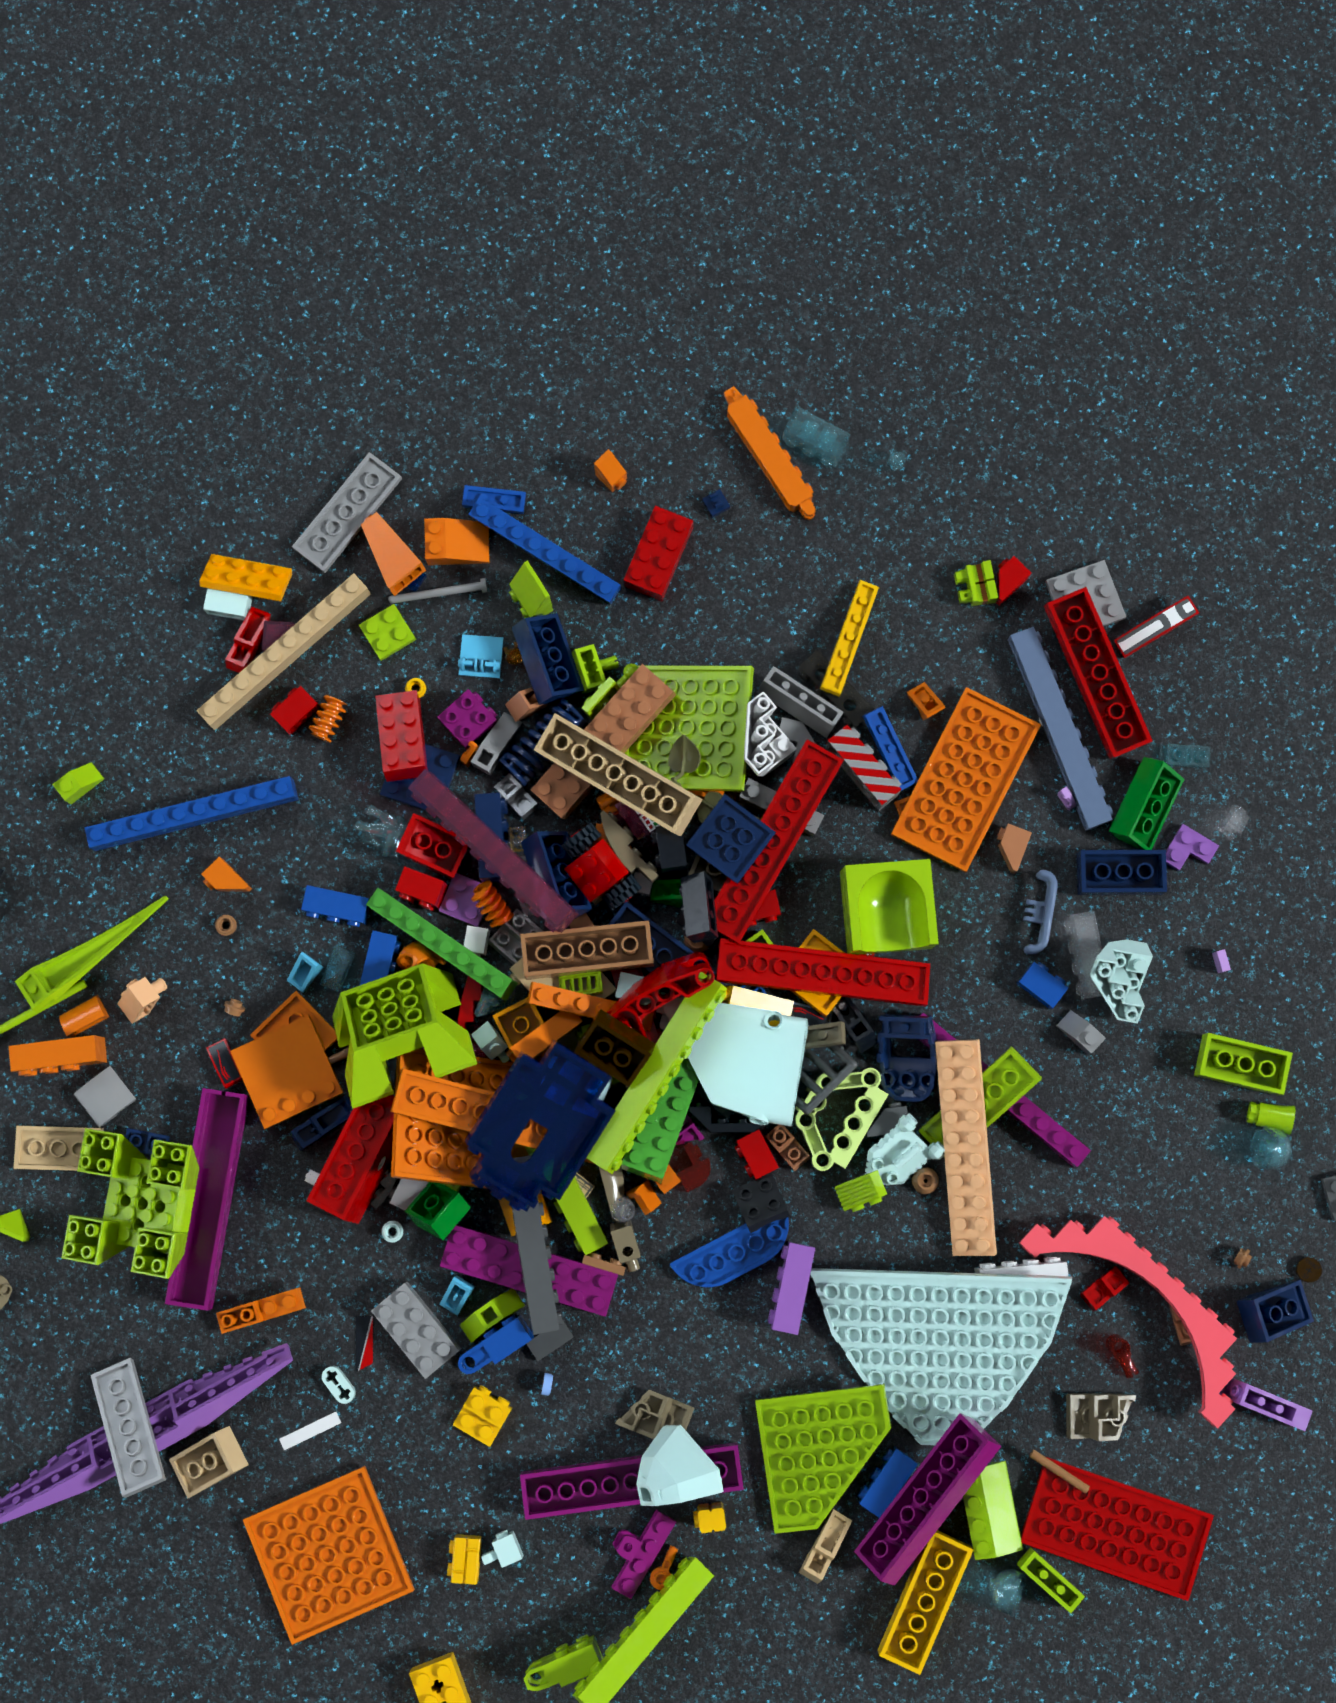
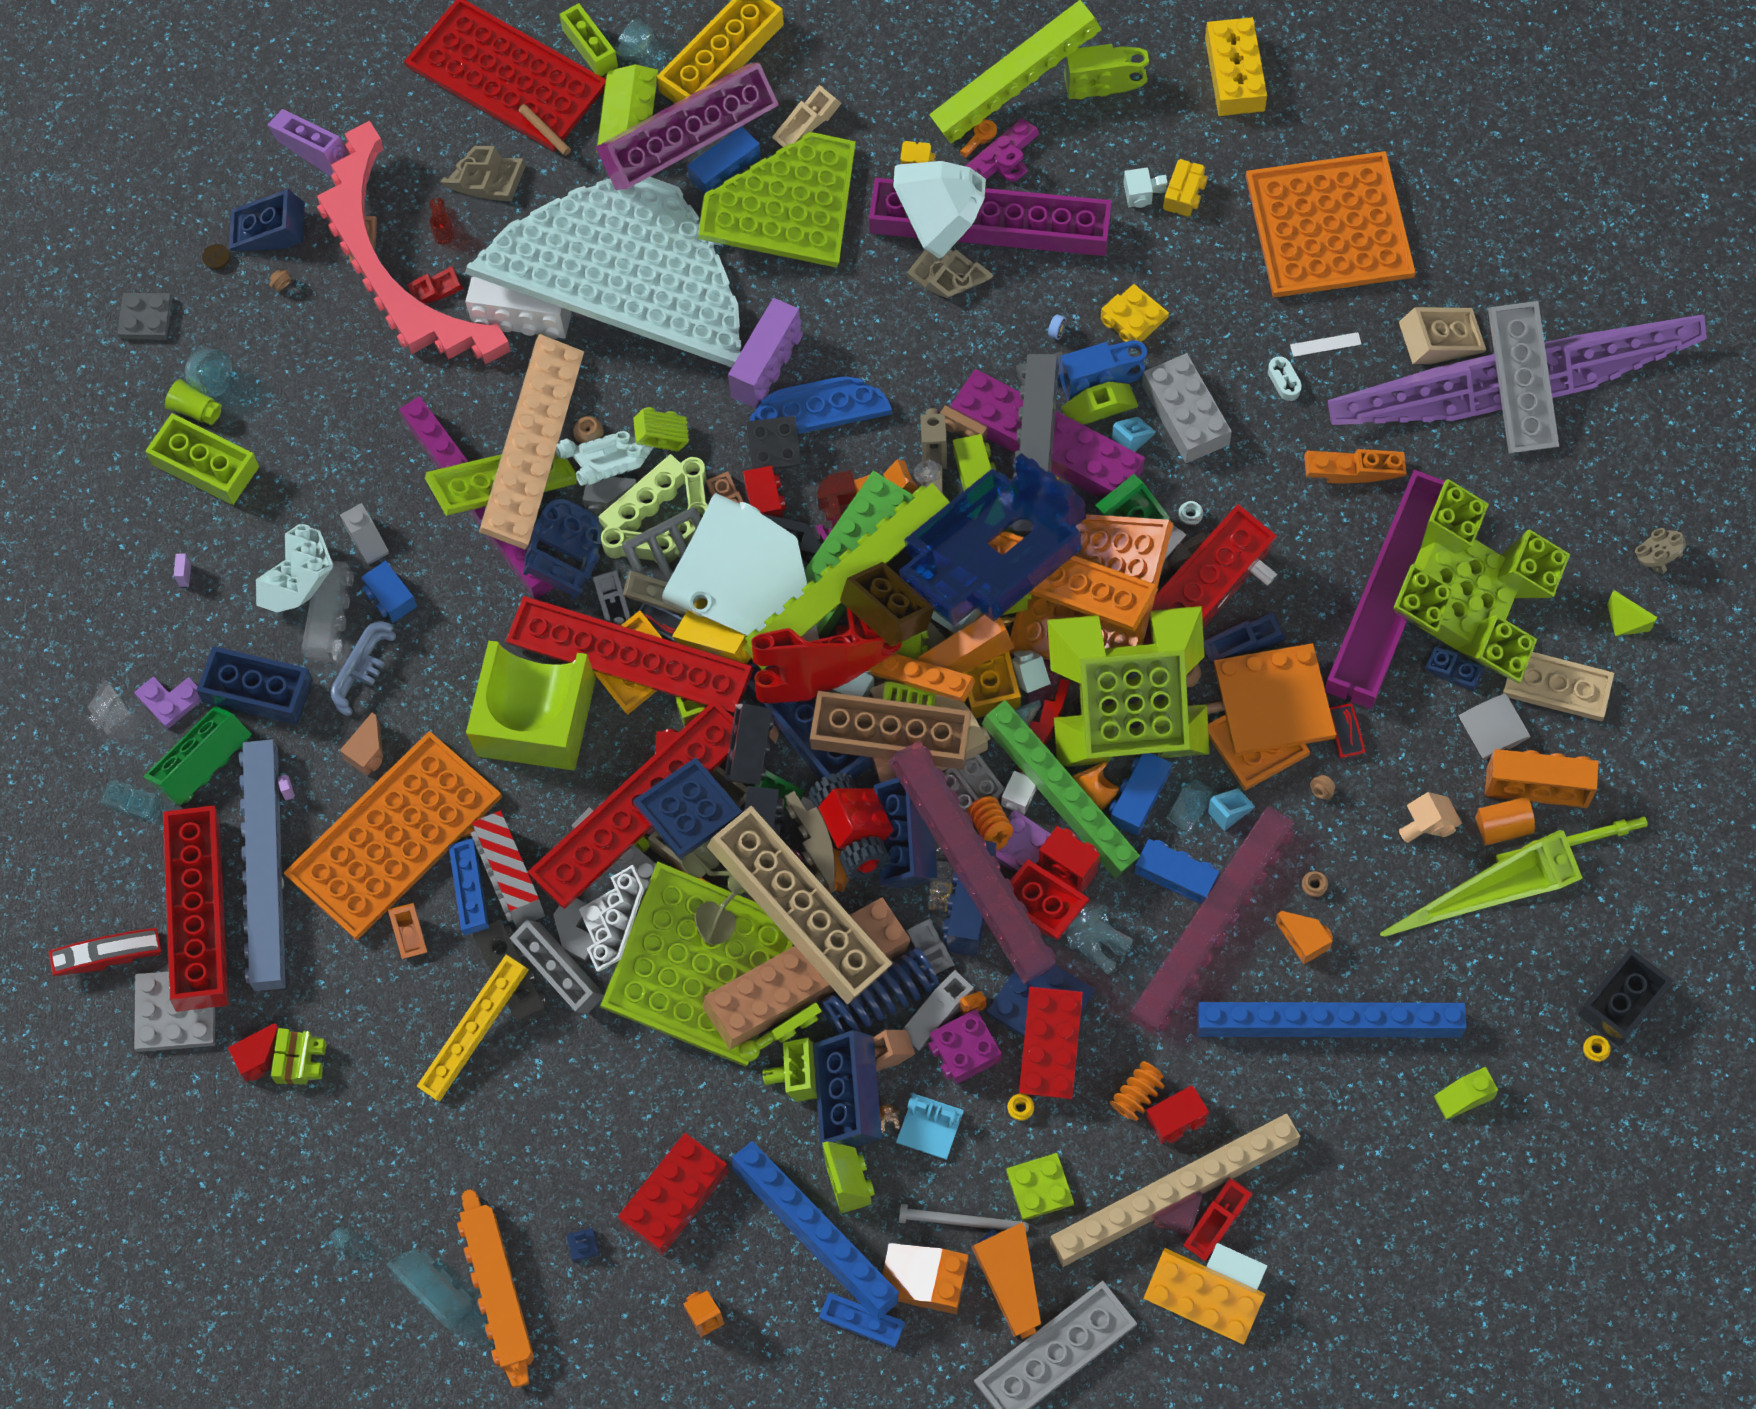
camera: 165 degrees left, 15 degrees down
(299, 872) = (1211, 921): none -> clear pink brick
(364, 1341) = (1247, 415): sticker -> none

